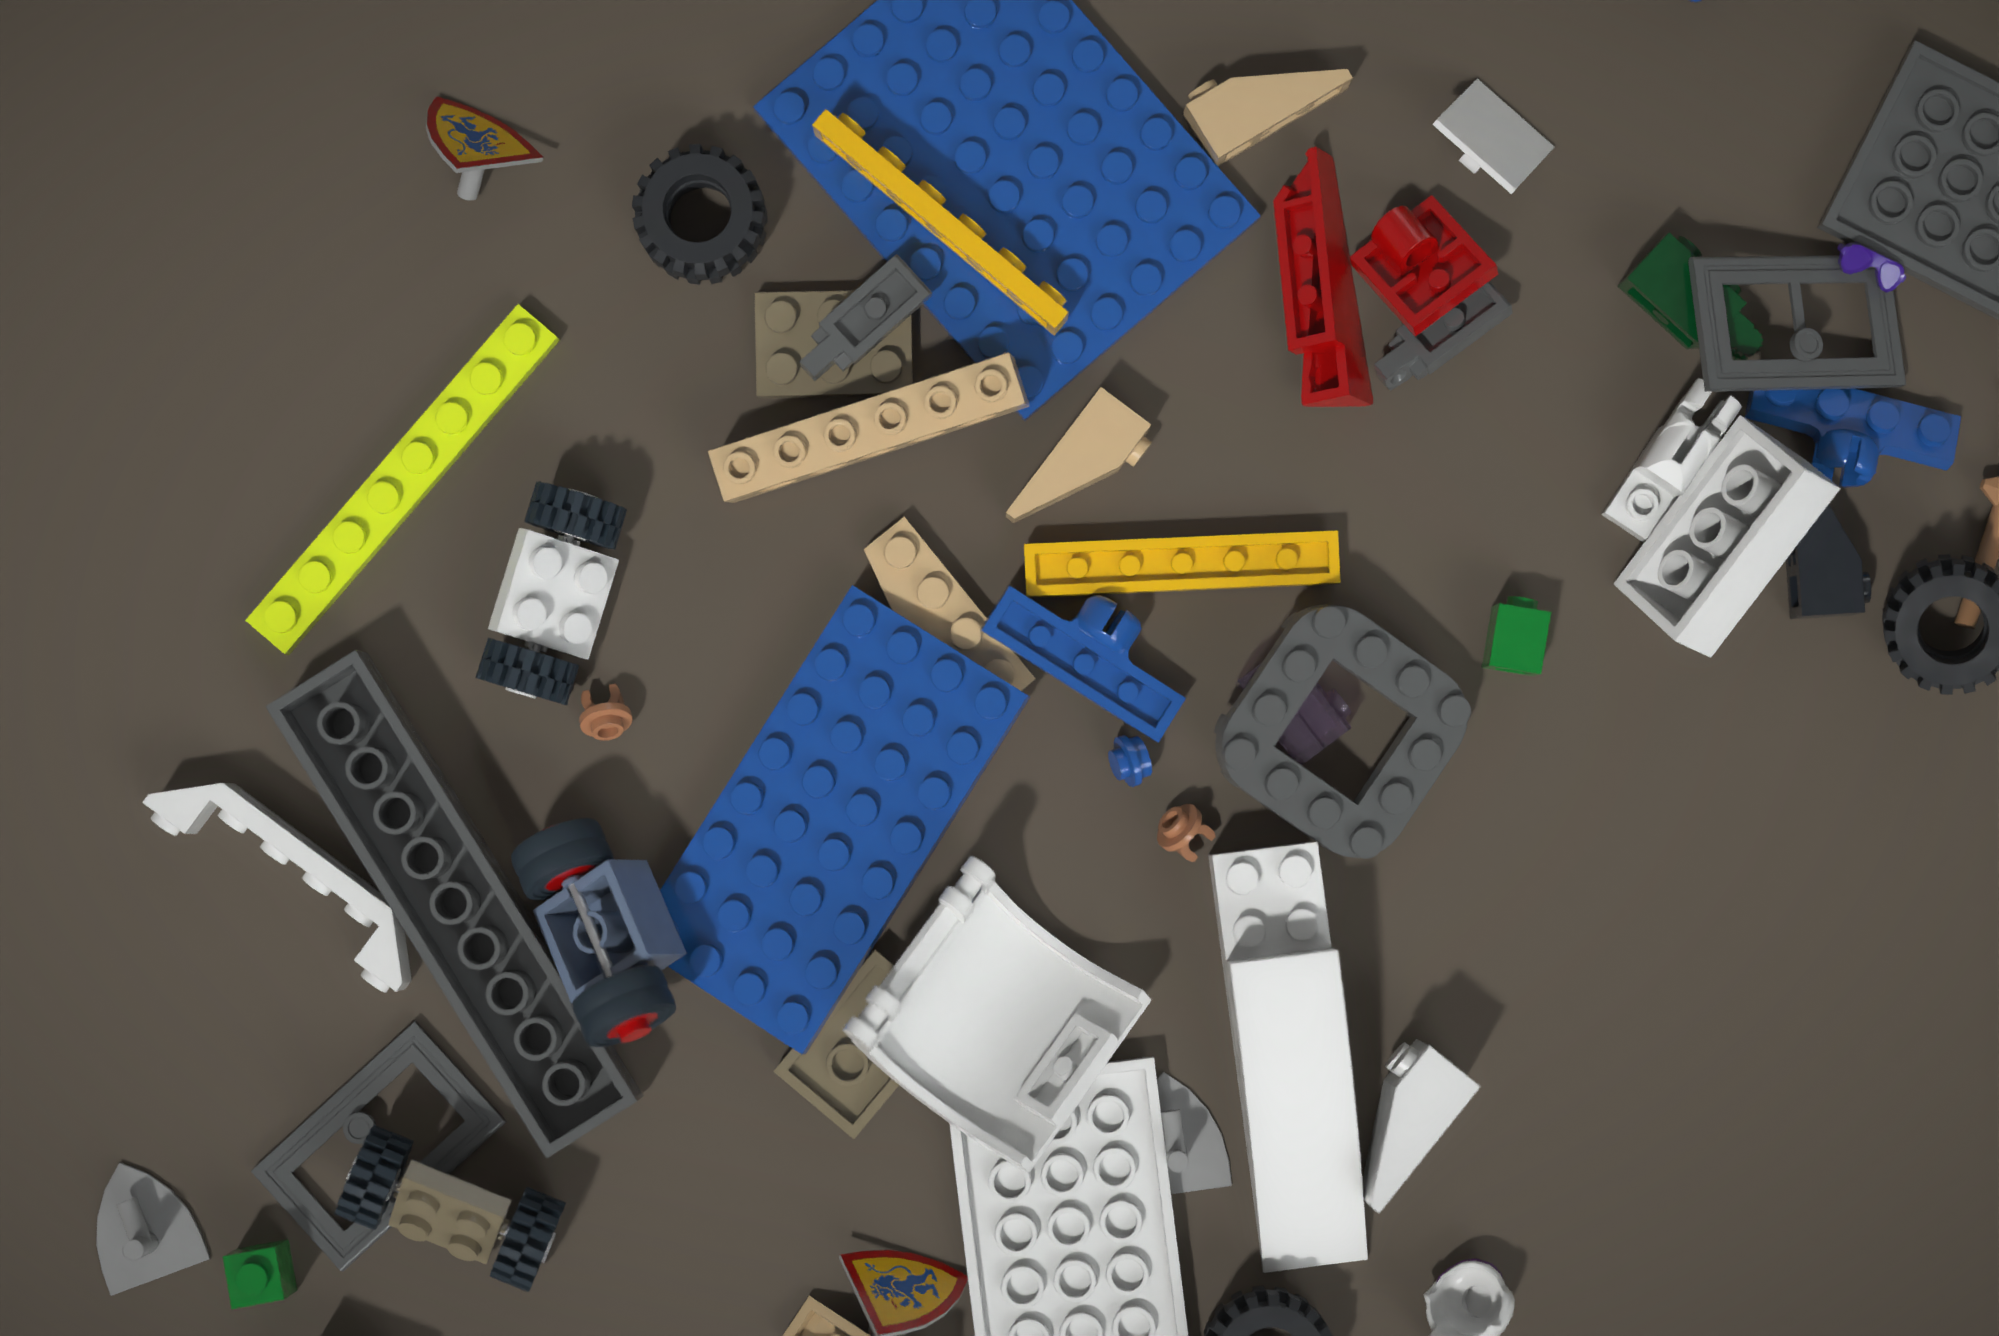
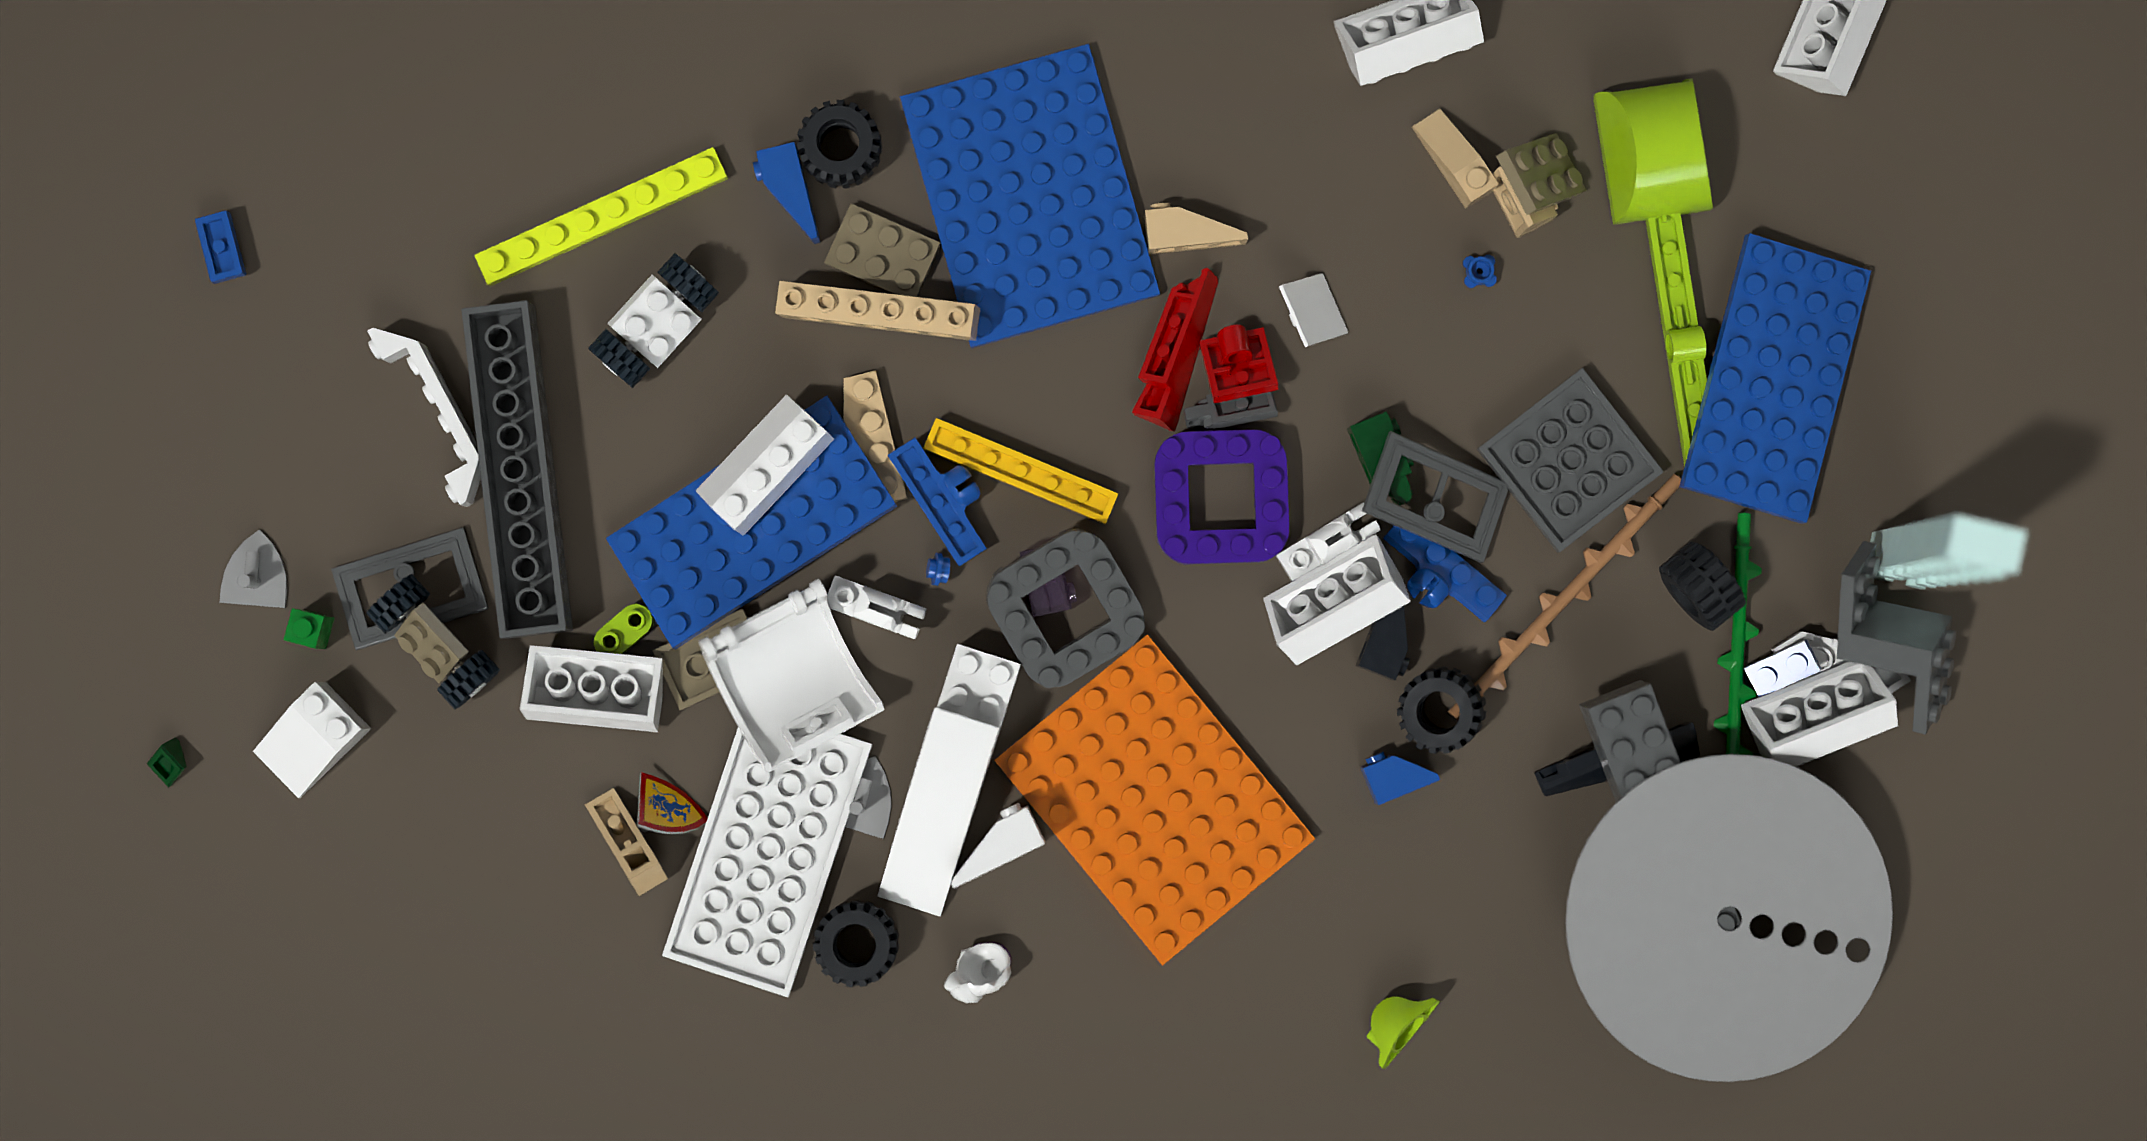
camera: 25 degrees right, 0 degrees up
(474, 142) = (730, 42): shield -> none
(602, 929) = (592, 523): brick -> none
(607, 719) = (651, 406): nougat plate -> none
(648, 306) = (785, 180): none -> blue slope
(714, 1167) = (593, 688): none -> white slope
(717, 1063) = (622, 630): none -> lime plate
(811, 727) = (764, 465): none -> white slope
(866, 318) = (905, 247): dark grey hinge -> none
(926, 207) = (969, 198): yellow plate -> none
(1063, 858) = (873, 606): none -> white plate
(1090, 451) = (998, 382): tan slope -> none
(1179, 827) = (947, 620): nougat plate -> none
(1516, 637) = (1192, 602): green brick -> none
(1557, 432) = (1221, 448): none -> dark purple plate
(1596, 946) = (1154, 799): none -> orange plate
(1856, 258) = (1489, 476): dark purple piece -> none
(1925, 753) = (1394, 777): none -> blue slope

